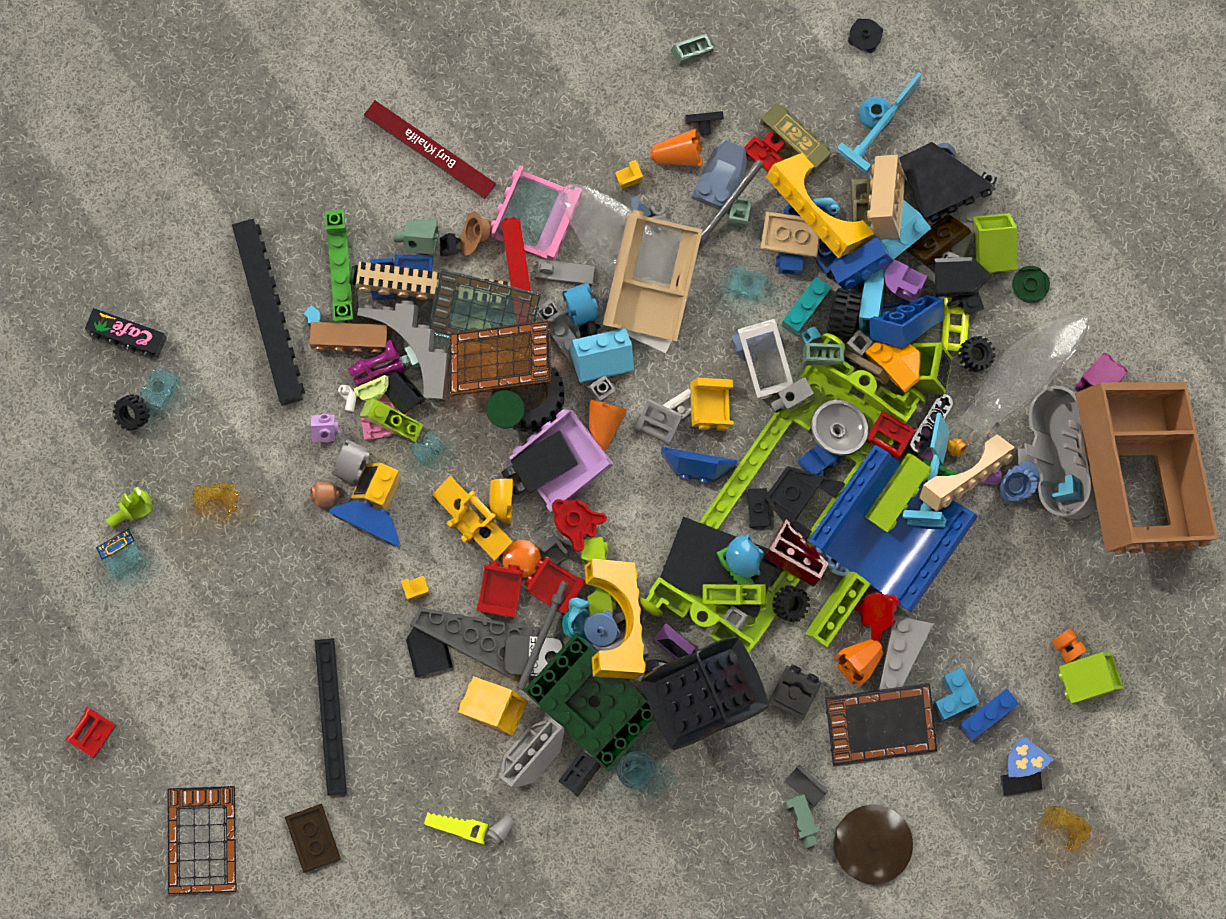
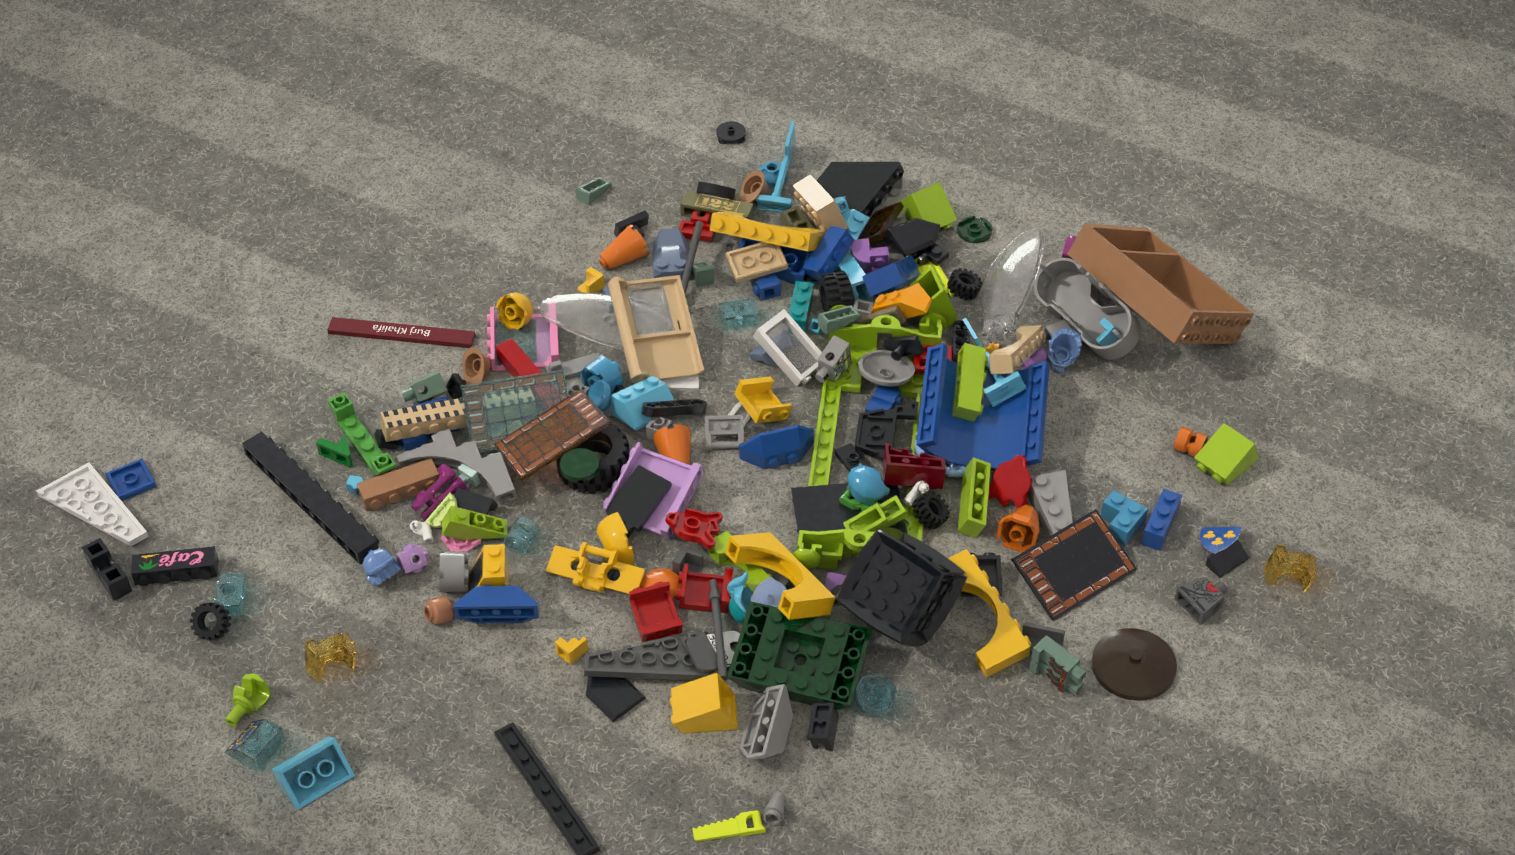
camera: 25 degrees left, 30 degrees down
(69, 317) = (106, 570): none -> black arch
(82, 218) = (93, 501): none -> white wing
(125, 211) = (131, 479): none -> blue tile
(155, 606) = (313, 772): none -> medium azure slope
(293, 424) = (379, 566): none -> medium blue hair
(315, 273) = (336, 452): none -> green slope
(541, 181) = (514, 310): none -> yellow cylinder
(563, 331) = (600, 394): none -> dark azure piece
(625, 370) = (674, 408): none -> black beam
(775, 775) = (1007, 643): none -> yellow arch
(791, 579) = (919, 488): none -> white arm
(799, 124) = (716, 190): none -> black tyre
(842, 129) = (753, 186): none -> medium nougat piece
(866, 411) = (903, 346): none -> black tile
(910, 200) = (842, 200): none -> medium azure piece
(971, 812) = (1201, 598): none -> dark grey torso

